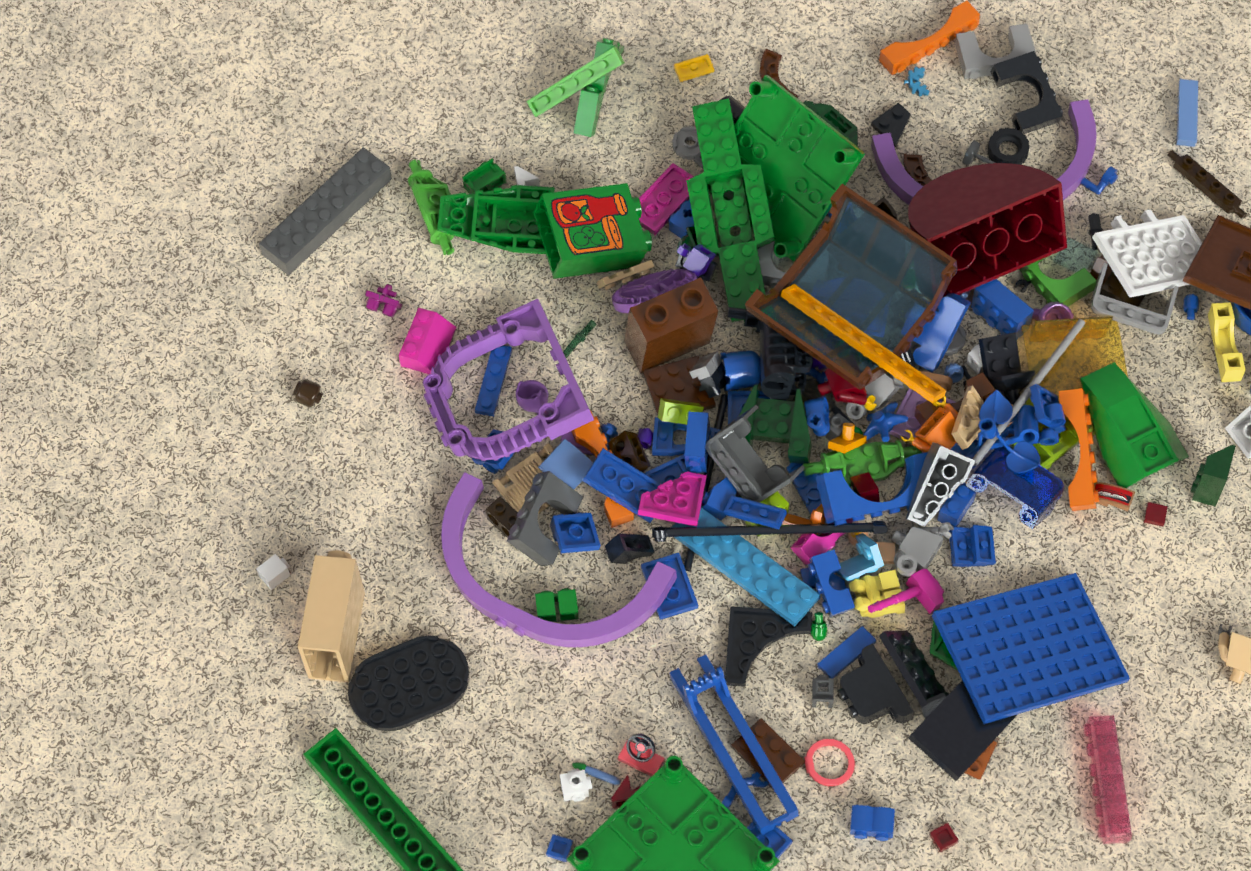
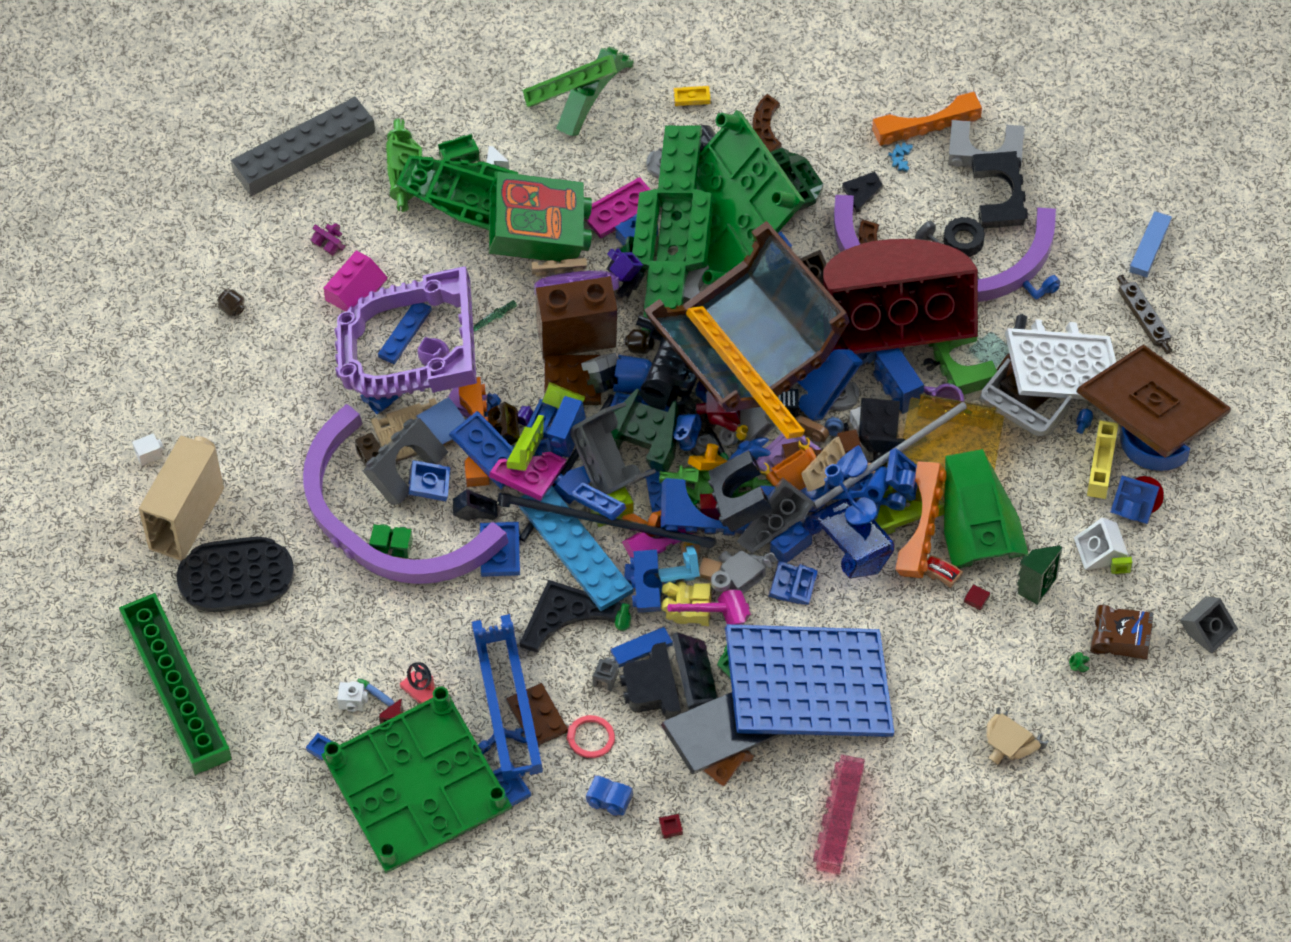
camera: 15 degrees right, 5 degrees down
(662, 472) = (526, 445): none -> lime fence
(732, 332) = (639, 341): none -> dark brown head
(901, 489) = (726, 479): none -> black arch

